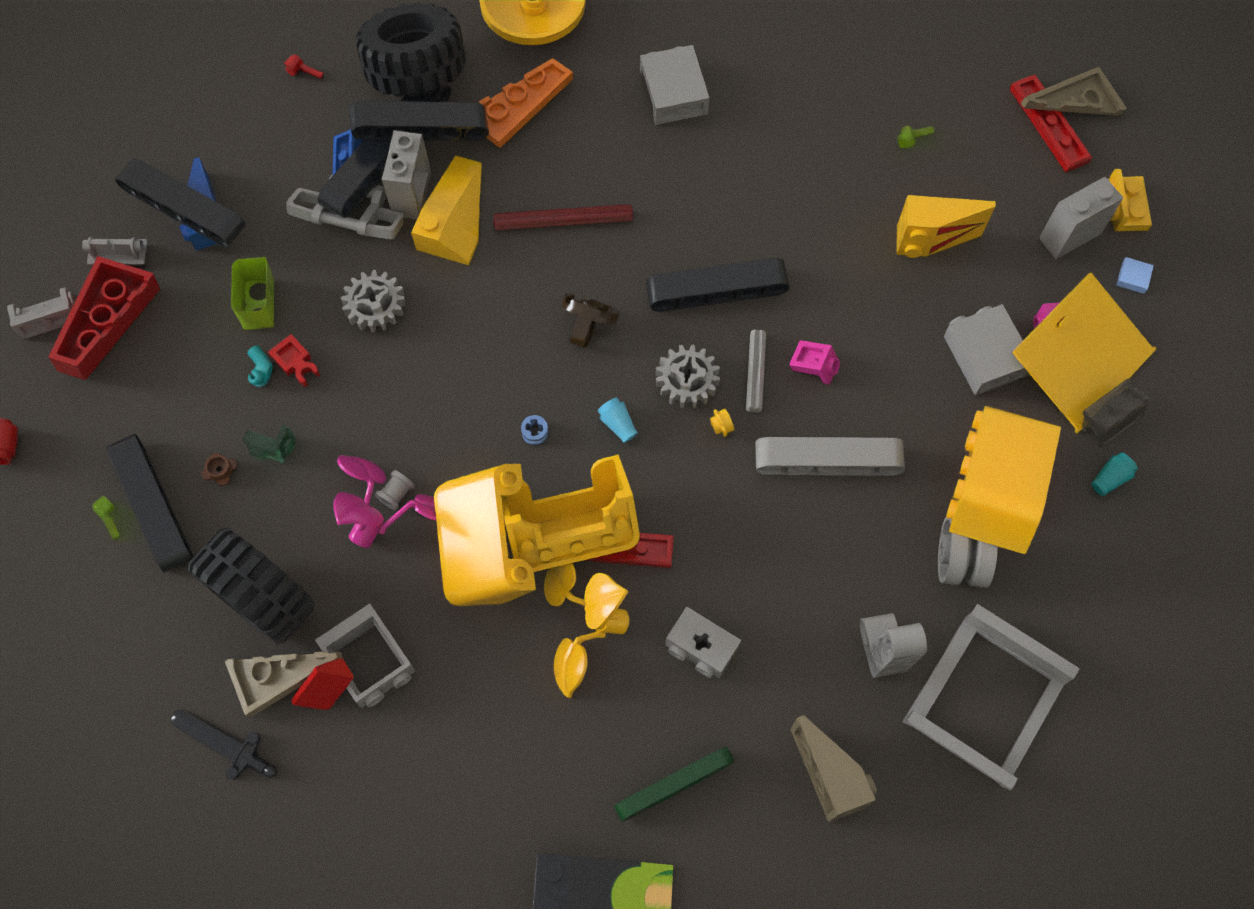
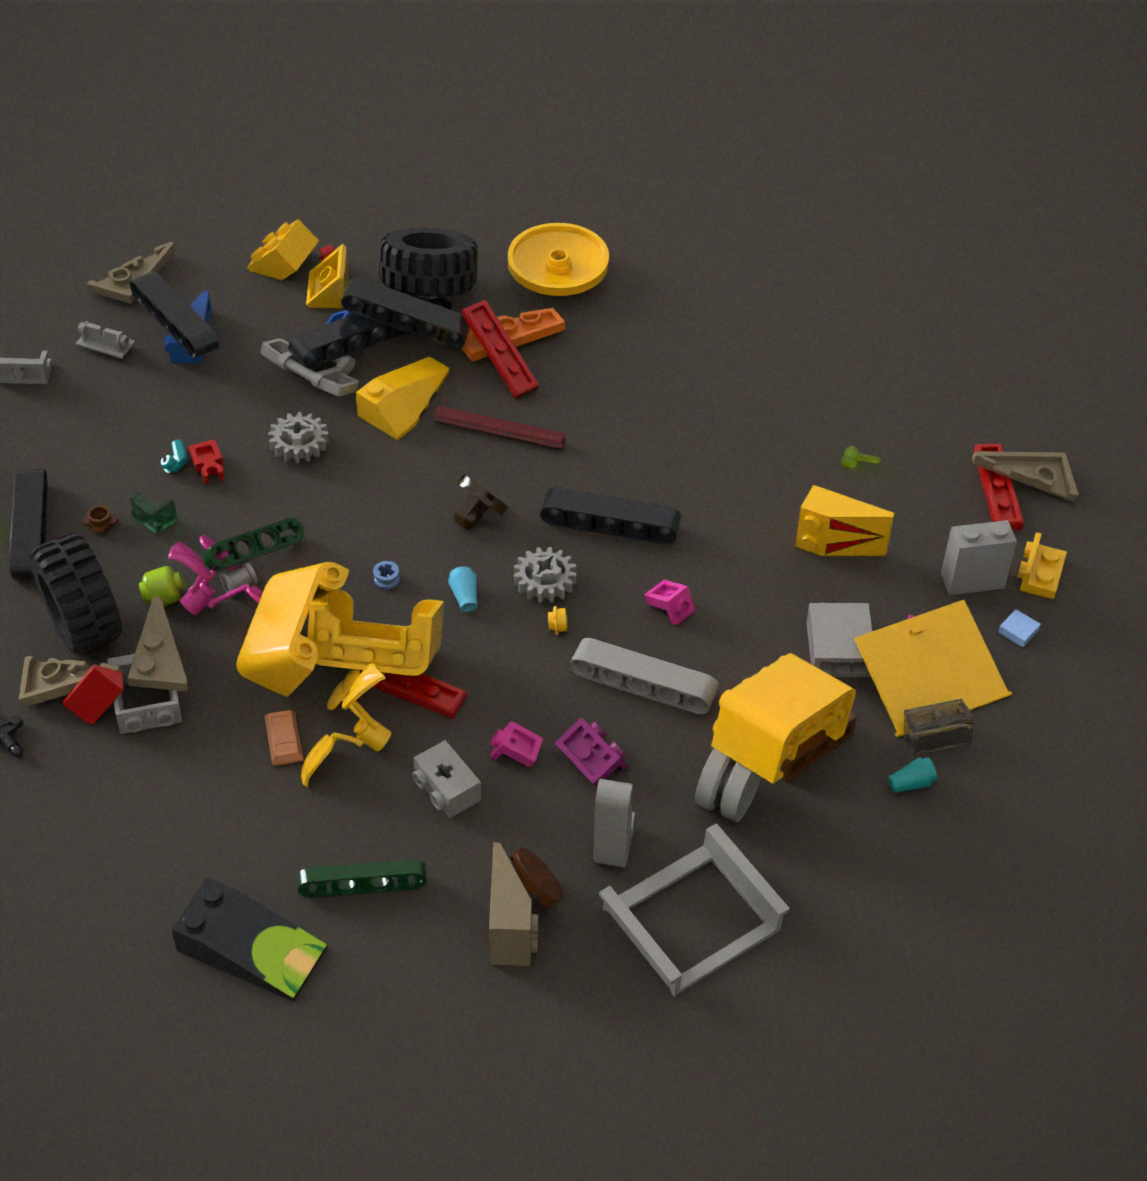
camera: 20 degrees right, 20 degrees down
(101, 314) = (65, 378): red wedge -> none
(104, 159) = (117, 283): none -> dark tan wing
(244, 275) = (199, 386): lime piece -> none
(249, 78) = (283, 251): none -> yellow slope
(313, 100) = (329, 280): none -> yellow slope
(321, 530) = (162, 583): none -> lime head
(365, 622) = (156, 656): none -> dark tan wing
(396, 450) = (254, 544): none -> dark green beam
(408, 175) = (378, 329): light grey window -> none
(523, 652) = (283, 738): none -> nougat tile
(526, 127) = (500, 349): none -> red tile
(675, 84) = (652, 357): light grey panel -> none
(747, 578) = (516, 743): none -> dark pink bracket
(756, 367) = (611, 592): light grey axle -> none
(820, 560) = (589, 751): none -> magenta bracket
(839, 723) = (536, 877): none -> reddish brown tile

